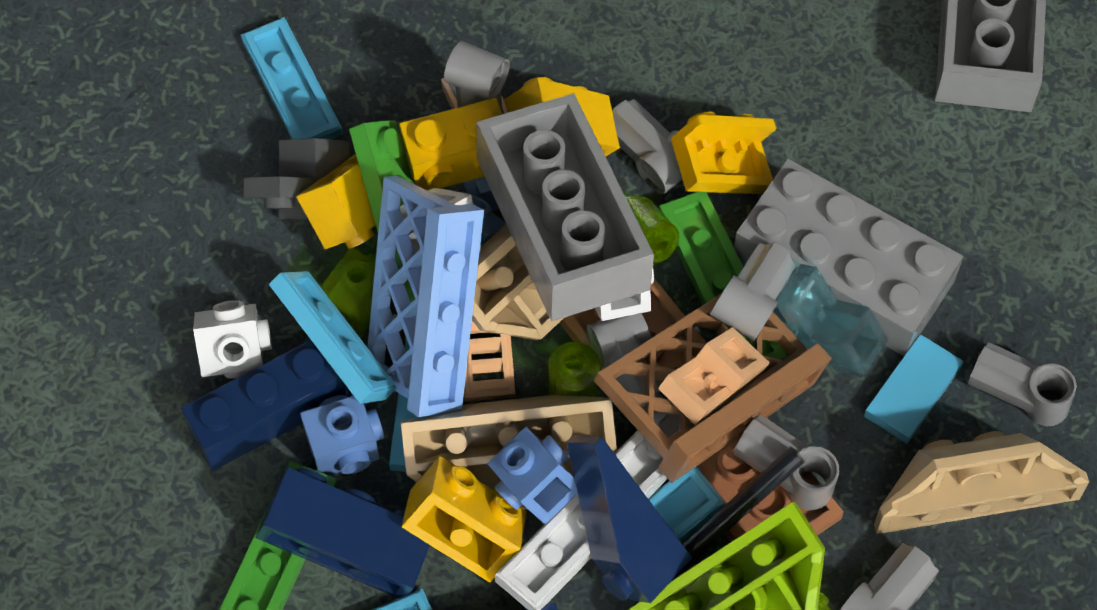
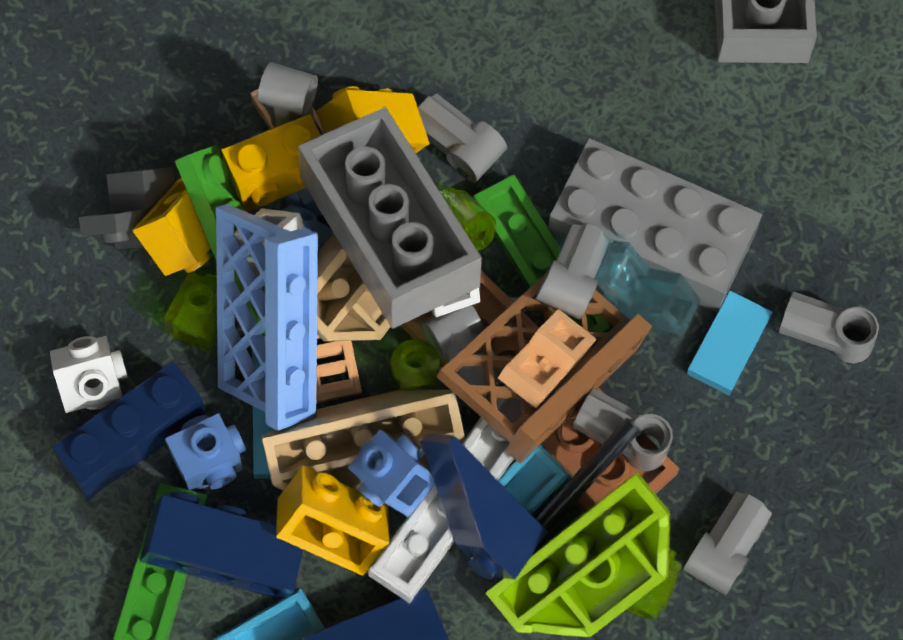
camera: 10 degrees left, 5 degrees up
(291, 82) = (107, 113): medium azure tile -> none
(333, 336) = (185, 360): medium azure tile -> none
(724, 153) = (528, 139): yellow bracket -> none
(978, 480) = (798, 423): tan wedge -> none

